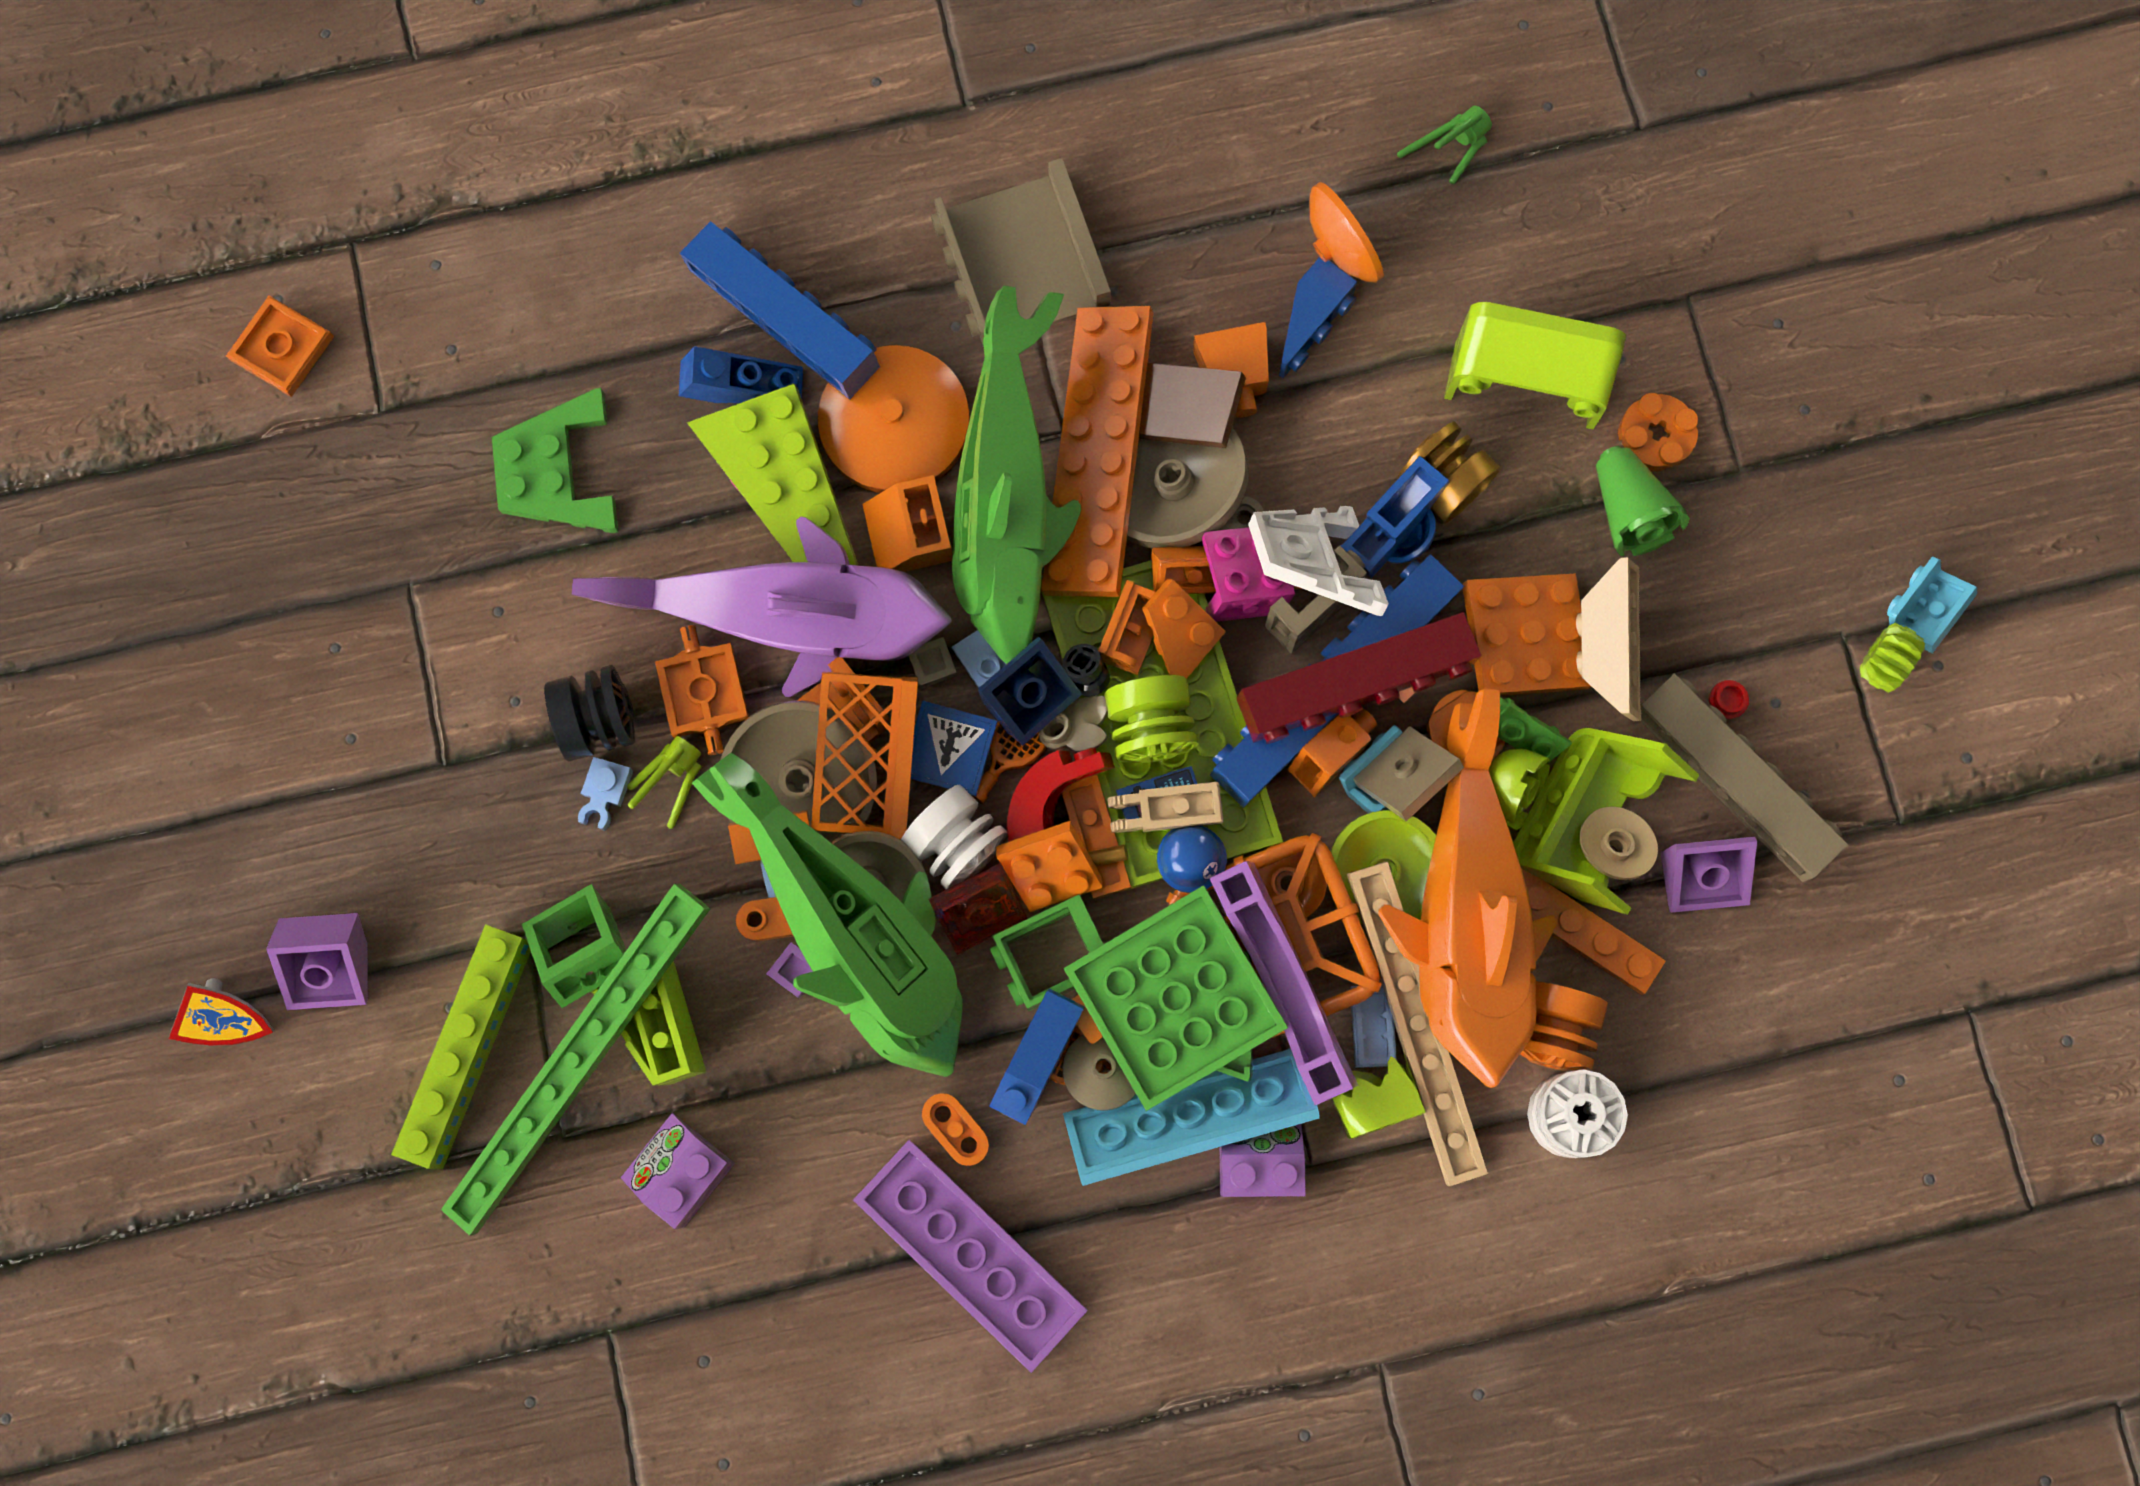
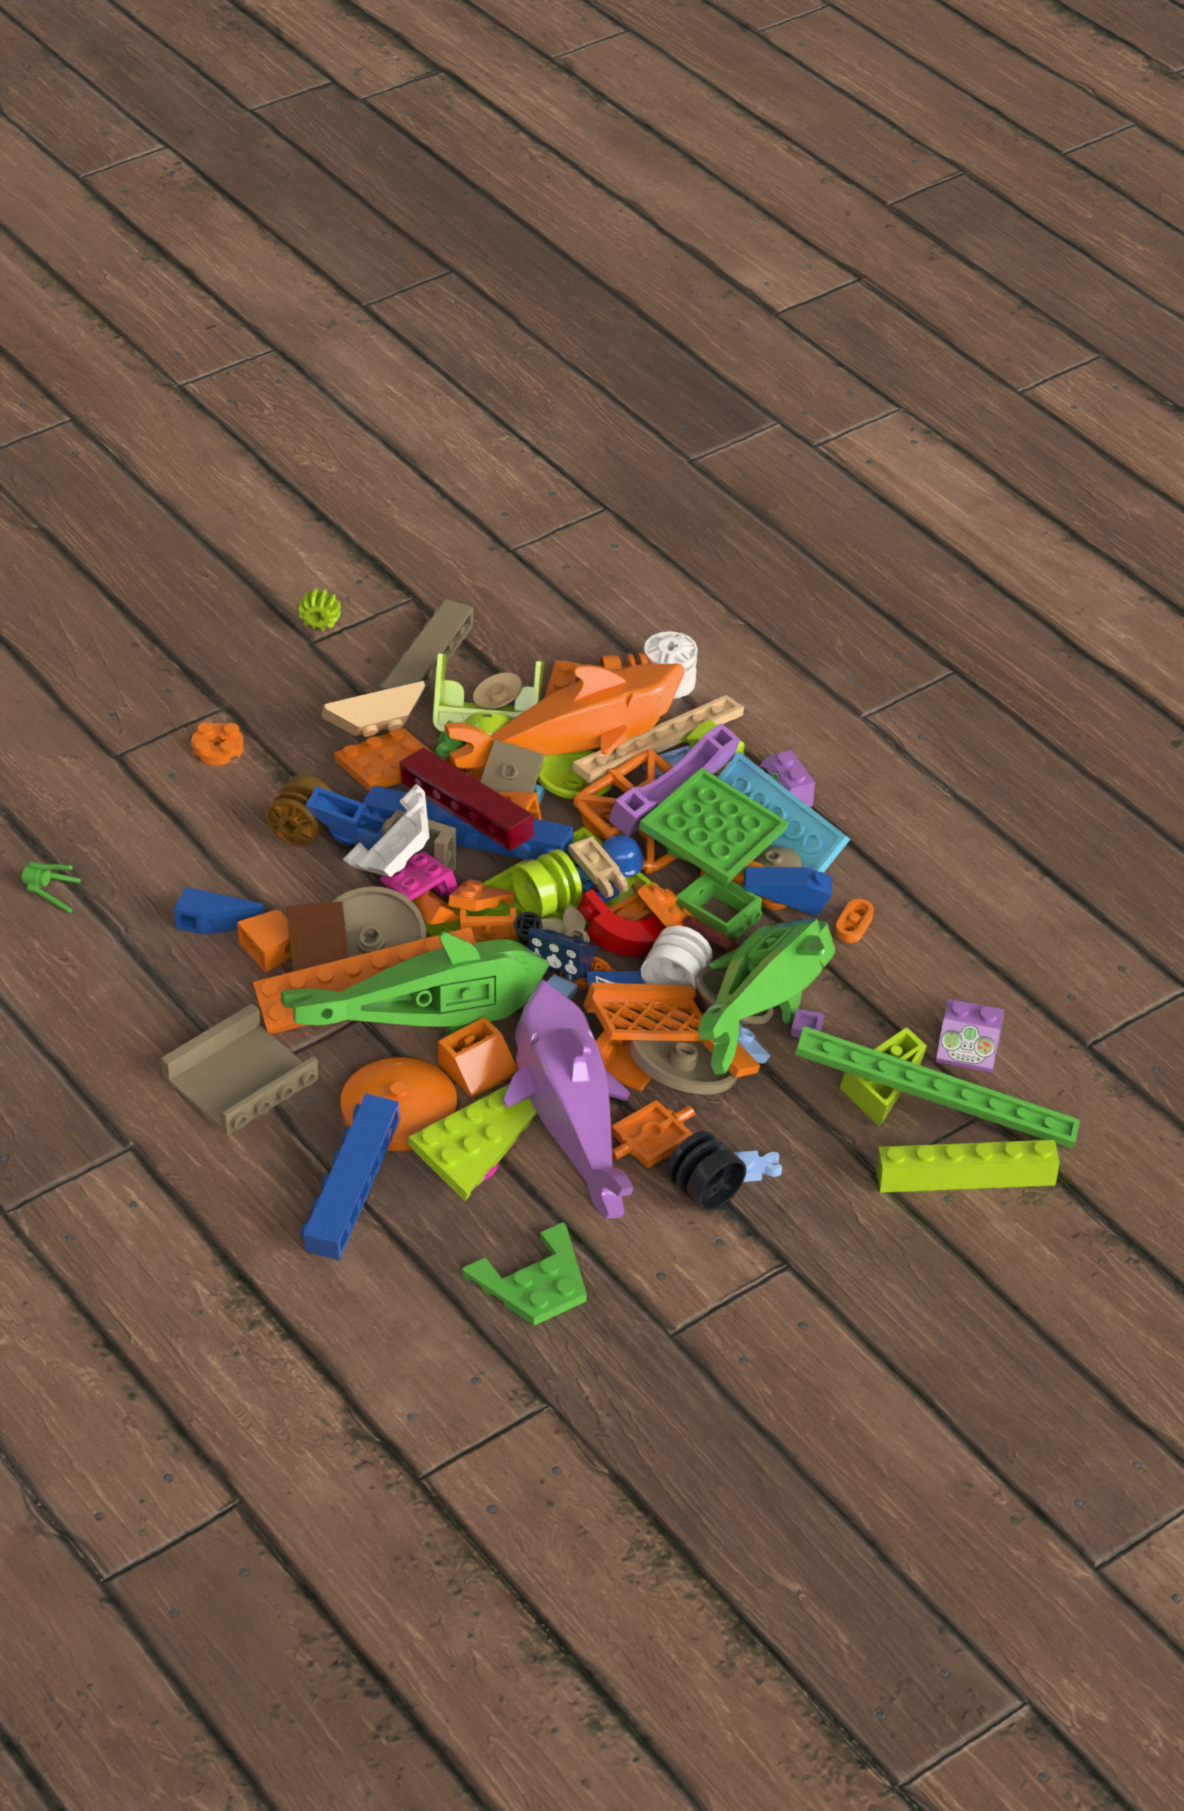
camera: 120 degrees left, 35 degrees down
(216, 1017) = (1034, 1311): shield -> none
(280, 346) = (531, 1479): orange plate -> none
(320, 961) = (961, 1266): medium lavender slope -> none
(568, 978) = (886, 1130): bright green window -> none
(677, 758) = (712, 1123): lime plant -> none
(733, 377) = (416, 1192): blue slope -> none
(773, 920) = (781, 1049): orange plate -> none
(970, 1255) = (922, 893): medium lavender plate -> none
(1341, 236) = (157, 893): orange dish -> none
(1537, 355) = (212, 789): lime windscreen -> none
(1636, 503) = (275, 731): bright green cone -> none
(1709, 874) = (489, 654): medium lavender slope -> none
(1729, 698) = (378, 672): red plate -> none
(1931, 603) = (275, 606): medium azure bracket -> none

